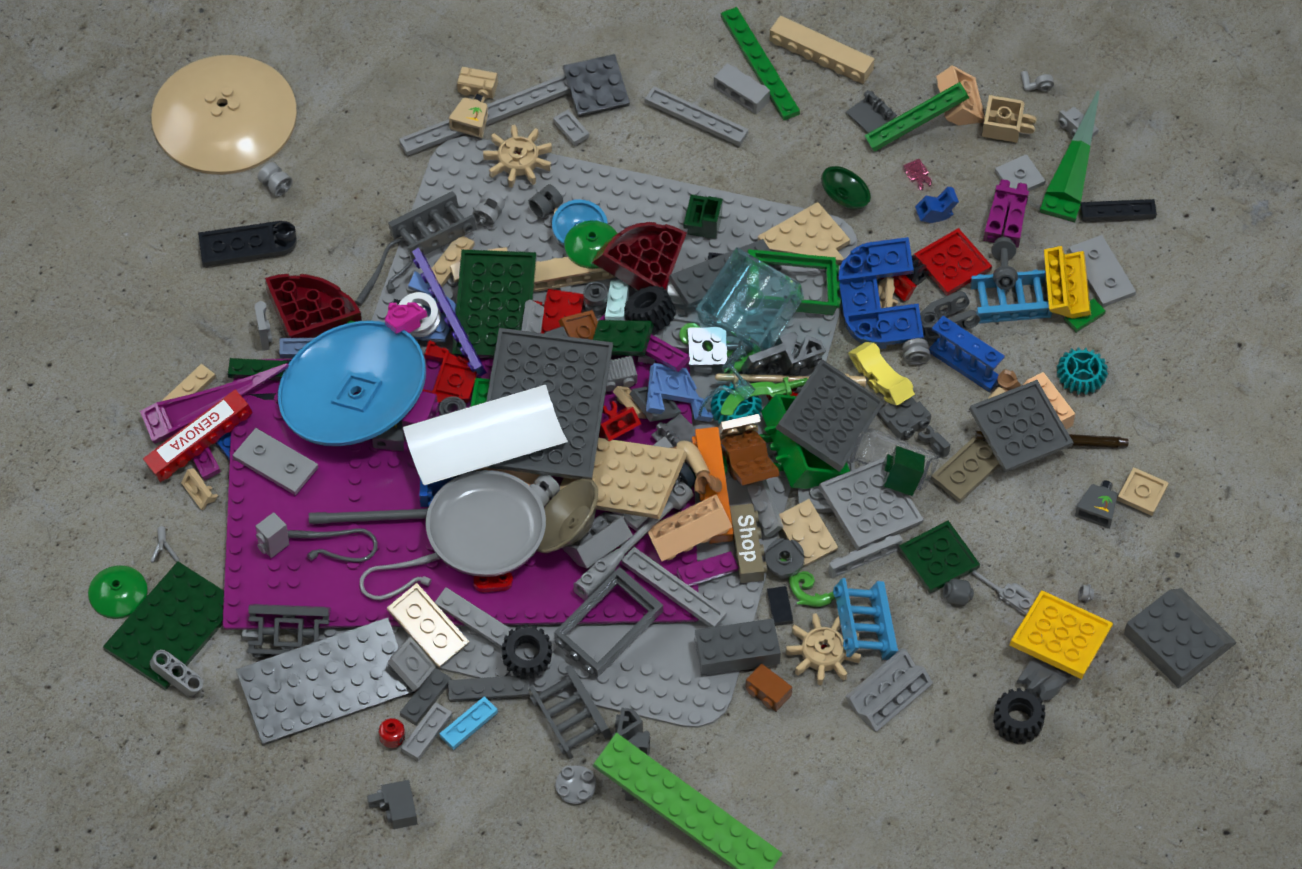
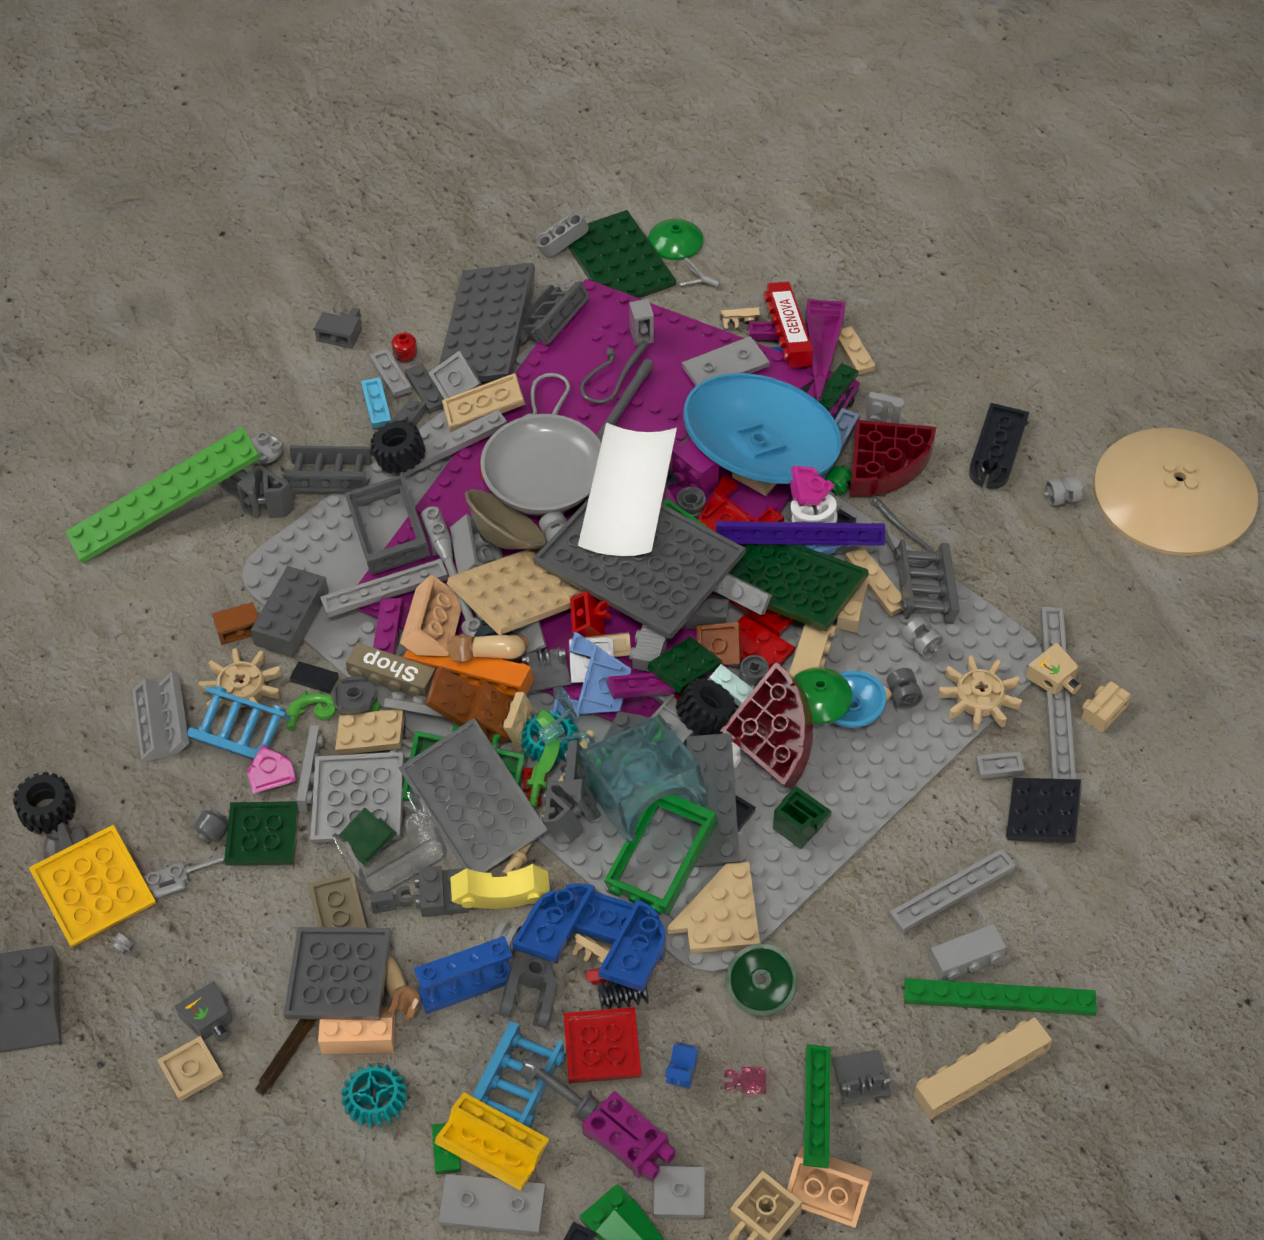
camera: 120 degrees right, 5 degrees down
(889, 574) = (269, 770): none -> plate

